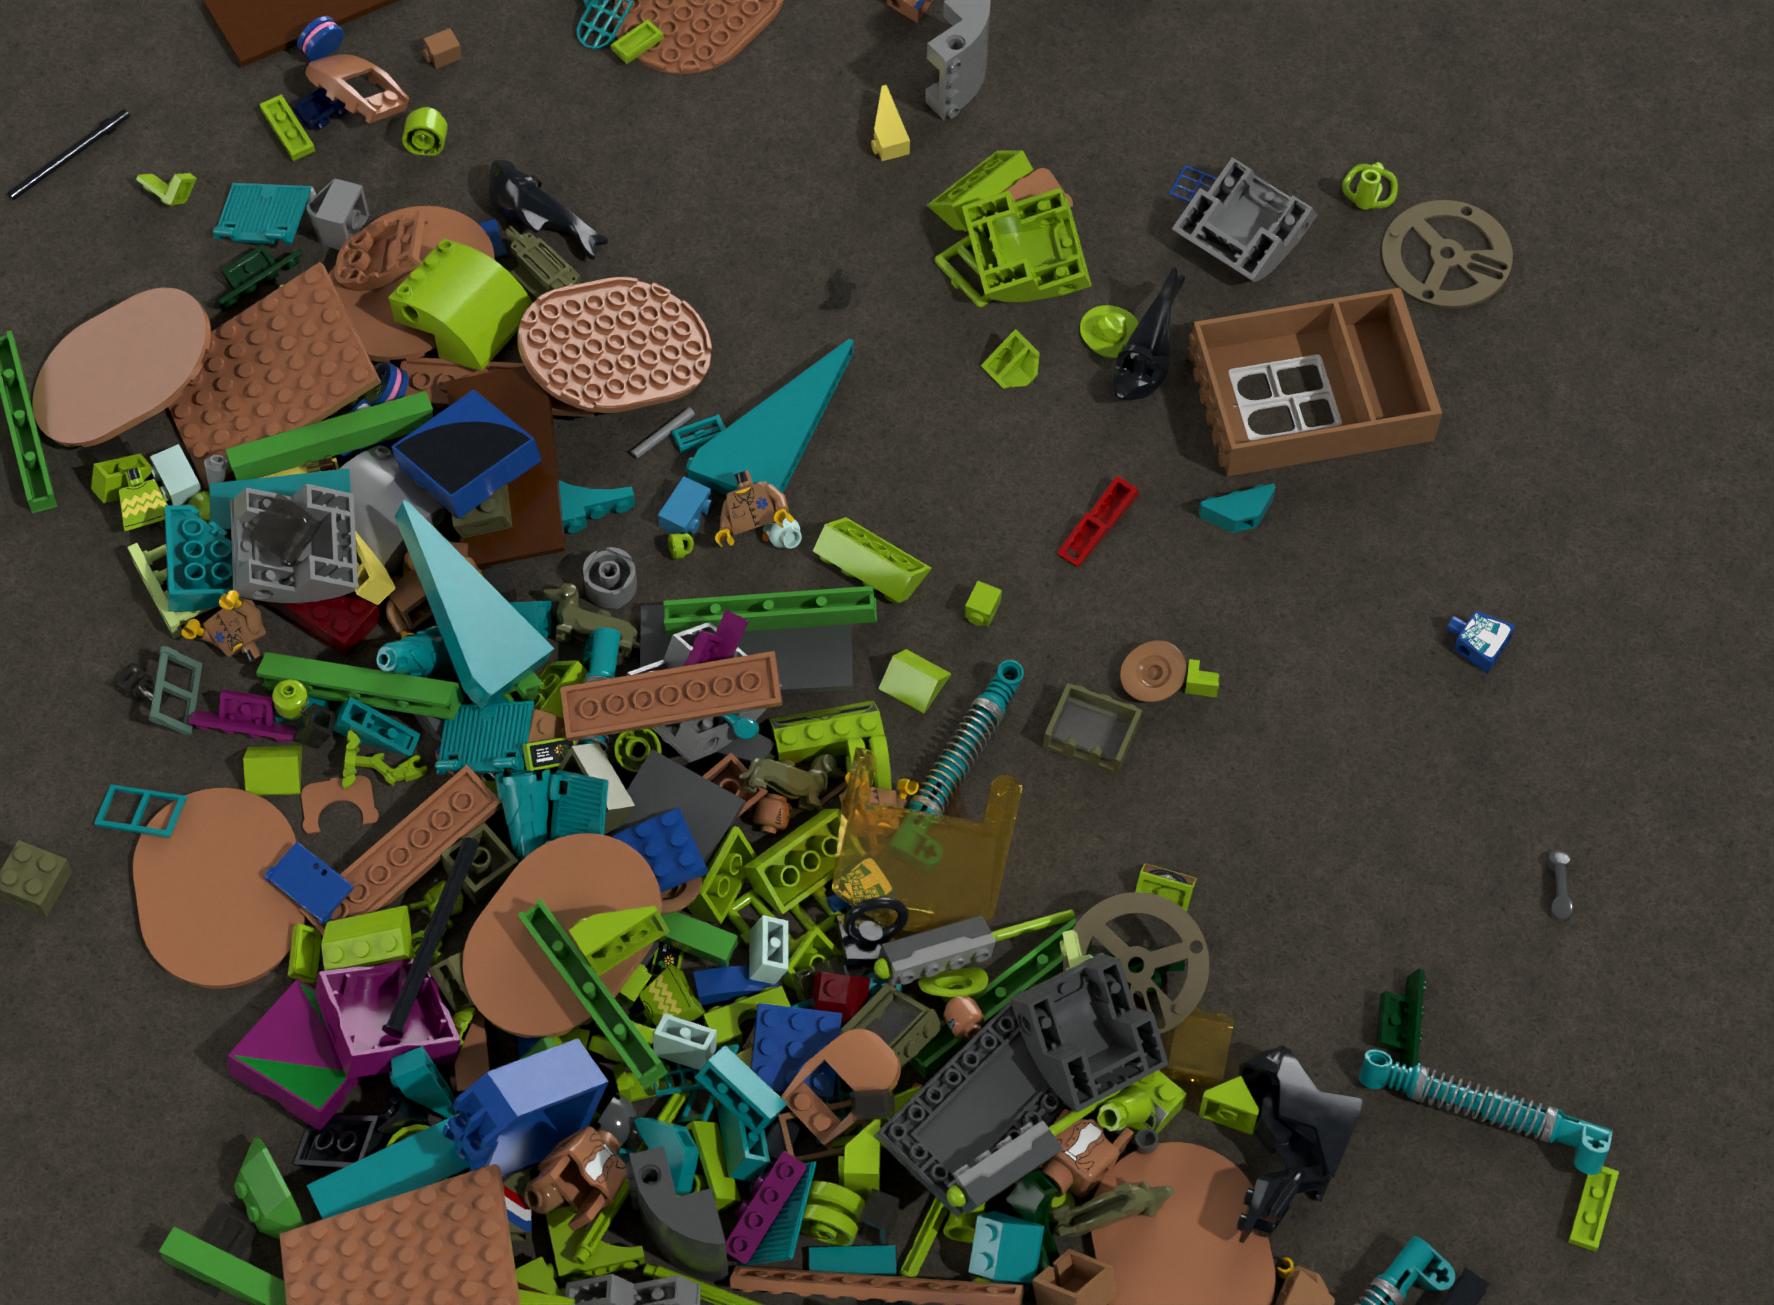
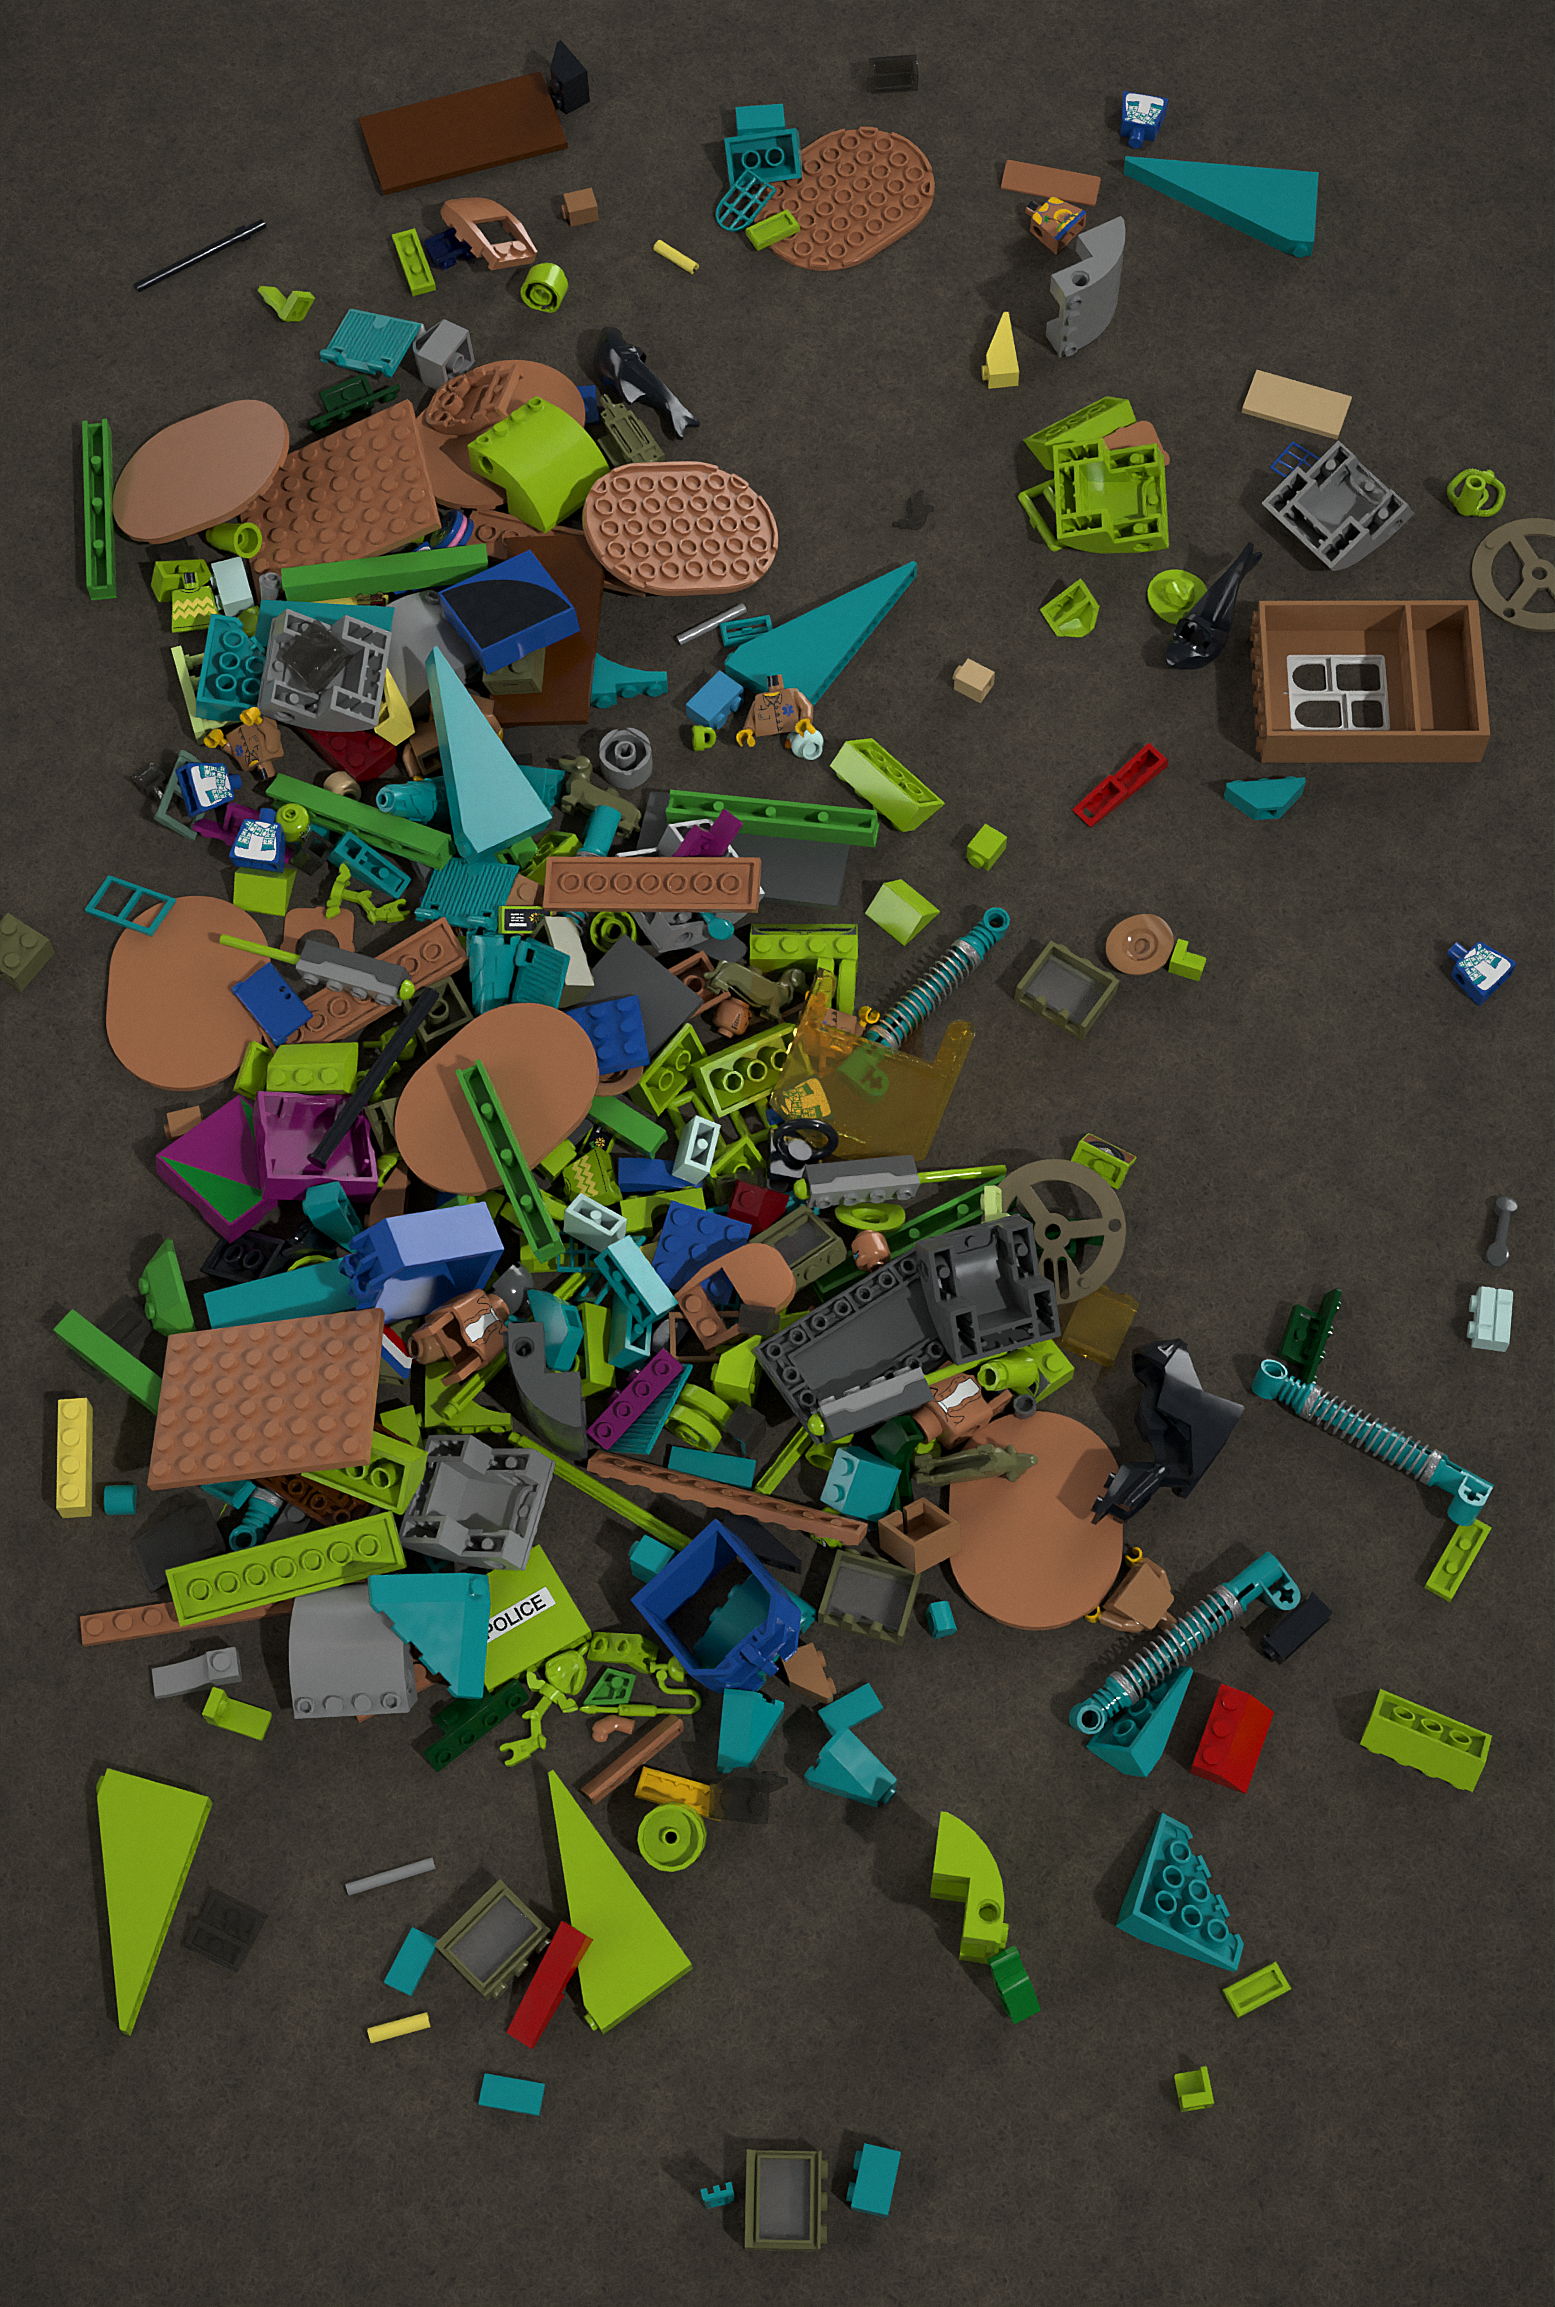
camera: 15 degrees right, 5 degrees up
(172, 427) = (241, 538): none -> lime plant
(194, 678) = (206, 786): none -> torso
(243, 1019) = (182, 1121): none -> medium nougat brick
(263, 725) = (260, 844): none -> torso
(320, 38) = (463, 178): blue head -> none
(332, 652) = (343, 784): none -> tan head
(373, 836) = (340, 970): none -> piece
(546, 82) = (675, 256): none -> light yellow piece
(617, 935) = (543, 1109): lime slope -> none
(933, 444) = (973, 680): none -> tan brick
(1181, 129) = (1296, 404): none -> tan tile
(1230, 1106) = (1114, 1387): lime slope -> none
(1571, 970) = (1491, 1318): none -> light aqua brick

